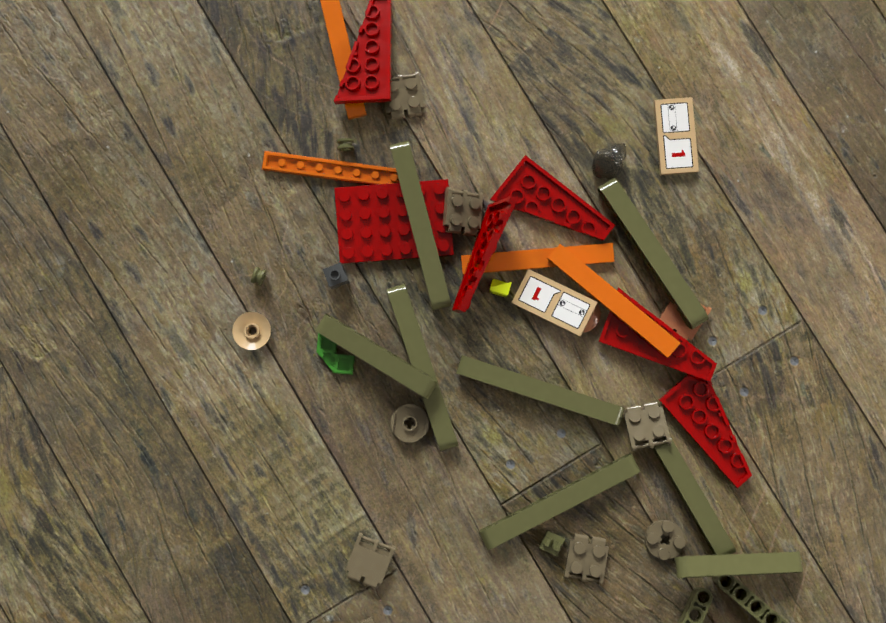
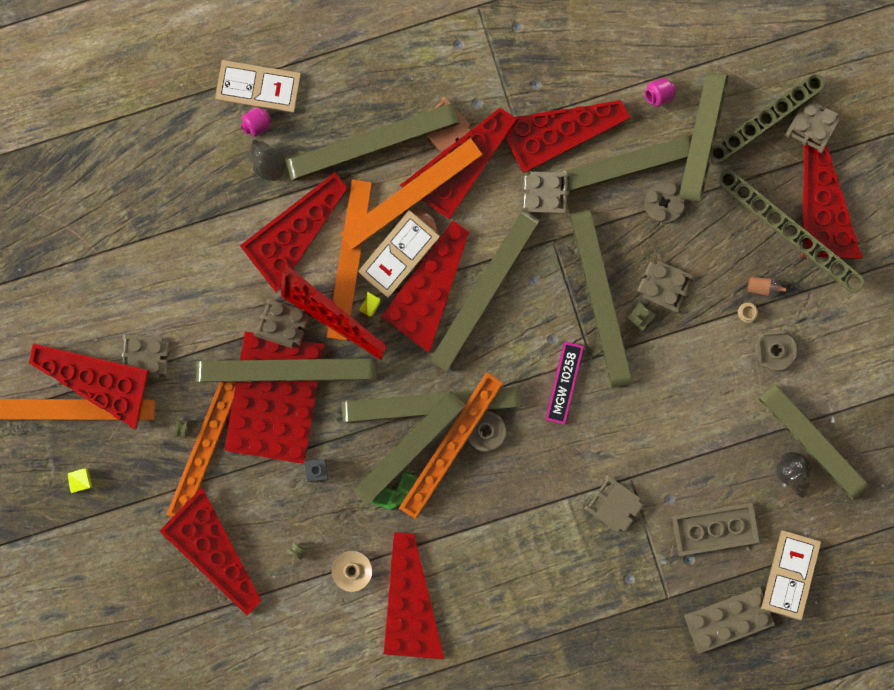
camera: 75 degrees left, 0 degrees up
(226, 393) = (410, 616): none -> red wing
(246, 191) = (203, 541): none -> red wing
(277, 66) = (79, 480): none -> neon yellow slope
(388, 394) = (451, 445): none -> orange tile
(472, 485) = (564, 383): none -> tile
(519, 335) = (424, 296): none -> red wing
(643, 141) = (255, 122): none -> dark pink head
(768, 511) = (660, 92): none -> dark pink head

